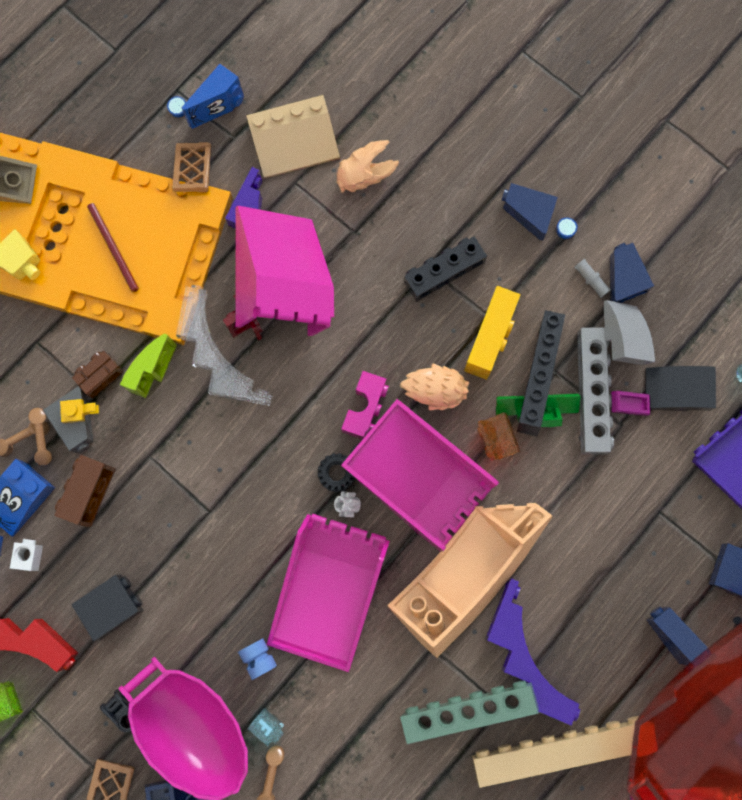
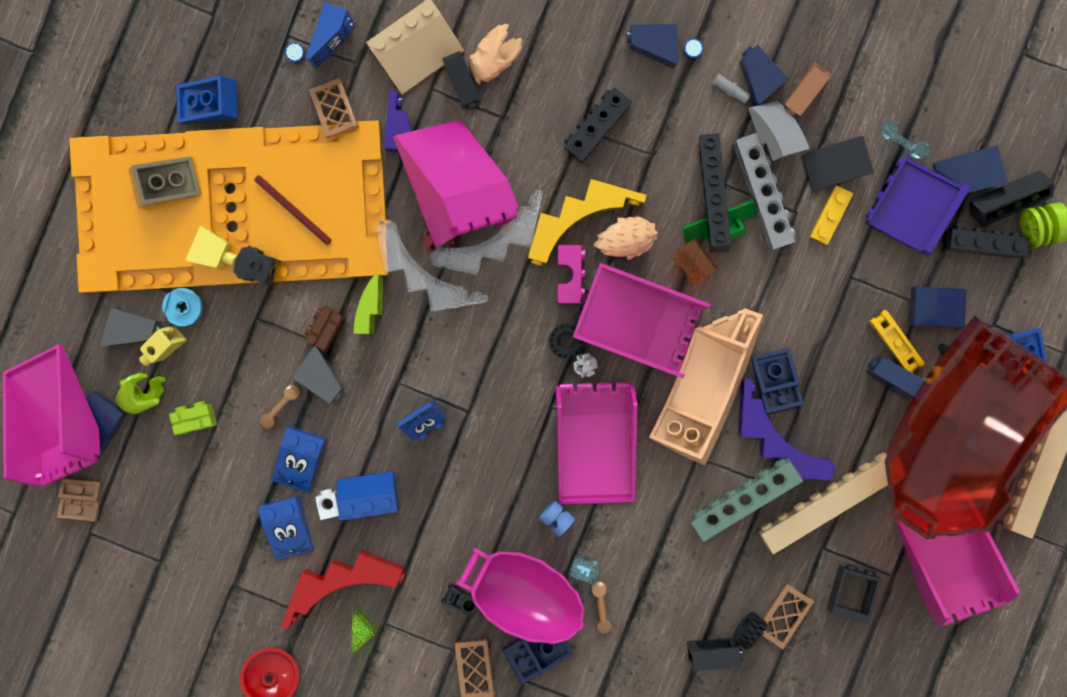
camera: 25 degrees left, 10 degrees up
(42, 456) = (290, 385): medium nougat bar -> none
(52, 286) = (254, 265): none -> black piece
(69, 561) = (367, 495): none -> blue slope
(76, 121) = (207, 100): none -> blue slope
(76, 410) = (321, 368): yellow plate -> none
(84, 491) = (357, 434): reddish brown brick -> none
(108, 607) = (415, 521): black brick -> none
(155, 500) = (423, 420): none -> blue slope
(325, 180) = (461, 80): none -> black slope
(327, 345) = (517, 233): none -> clear arch
(420, 340) = (598, 198): none -> yellow arch
(491, 335) = (660, 171): yellow brick -> none
(545, 595) = (777, 381): none -> dark blue slope
(630, 403) = (798, 192): magenta tile -> none
(657, 439) = (831, 215): none -> yellow plate
(670, 303) = (807, 89): none -> nougat slope
(689, 597) = (896, 342): none -> yellow plate

